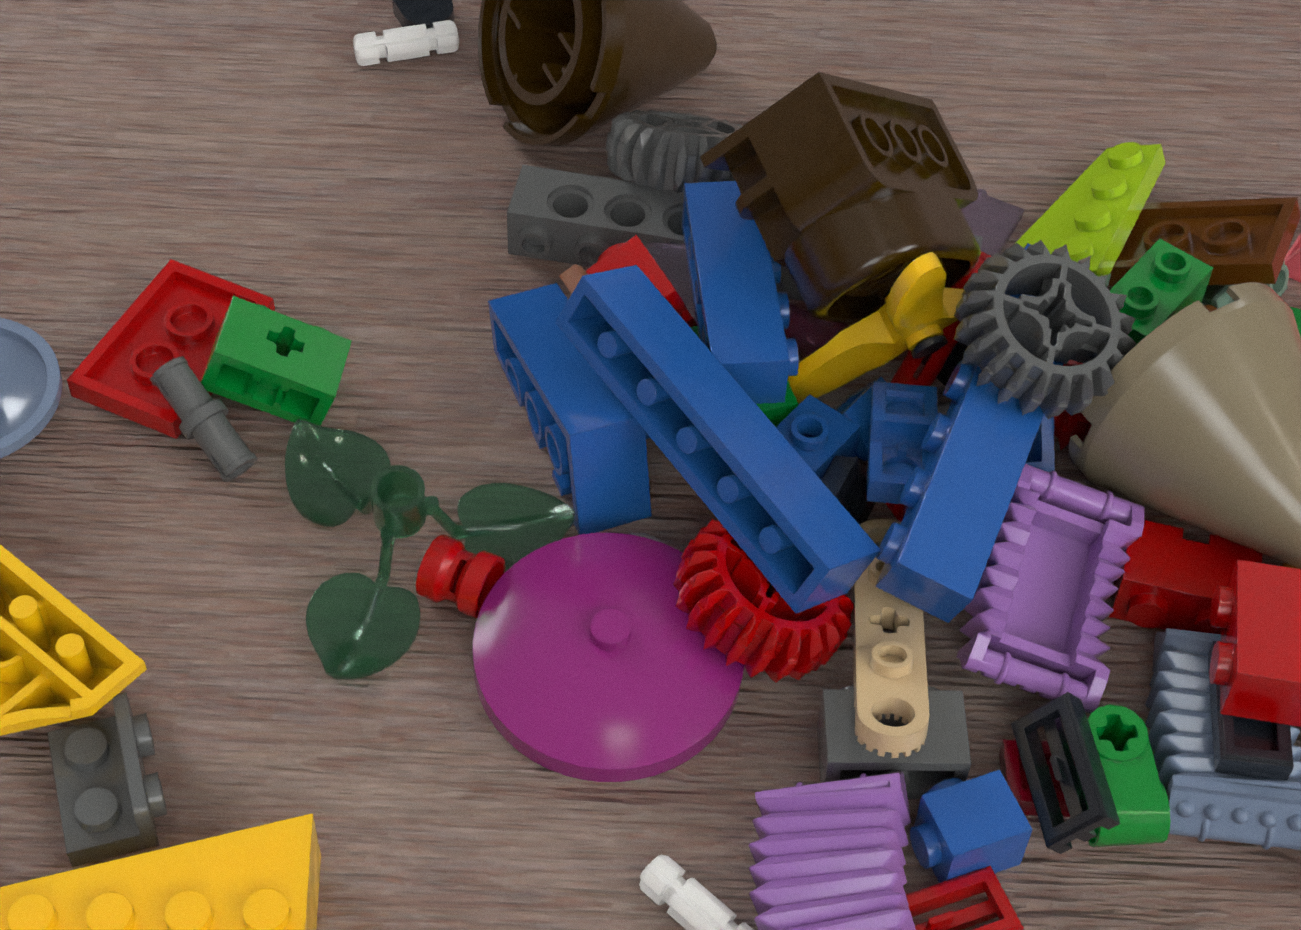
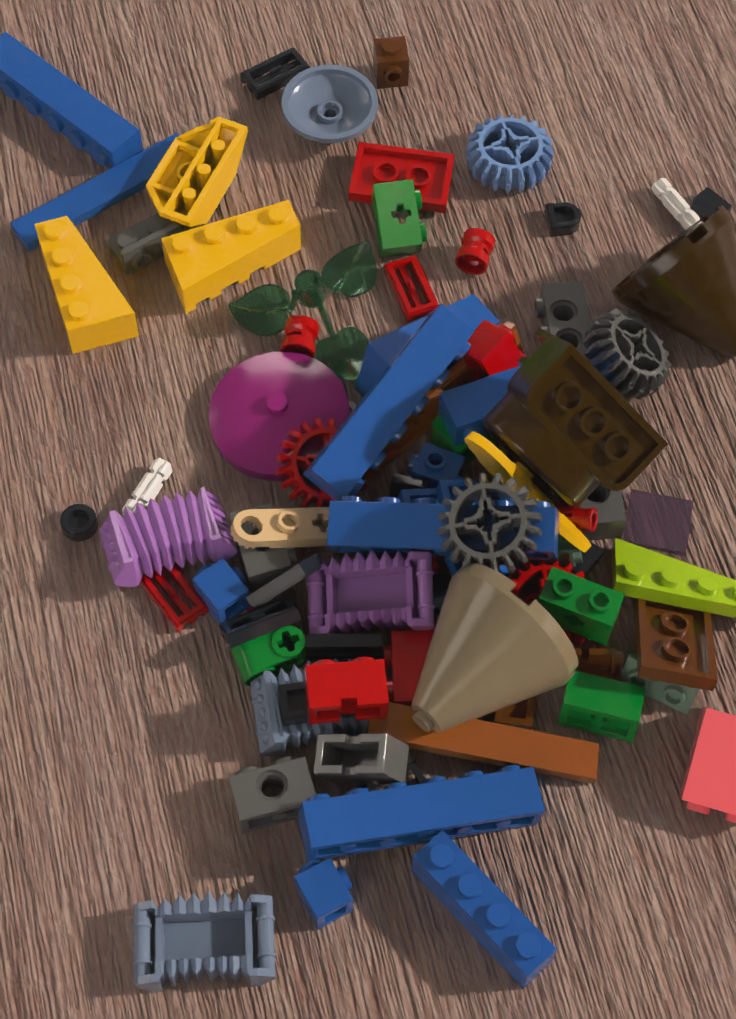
camera: 75 degrees right, 10 degrees up
(203, 419) = (353, 203): dark grey pin -> none
(205, 195) = (509, 153): none -> medium blue gear
(214, 657) = (229, 250): none -> yellow wedge
(361, 176) = (562, 218): none -> black tile
(379, 287) = (477, 246): none -> red wheel
(409, 408) = (419, 309): none -> red tile
(999, 702) = (284, 581): none -> black tile
(1126, 647) = (343, 646): none -> black tile

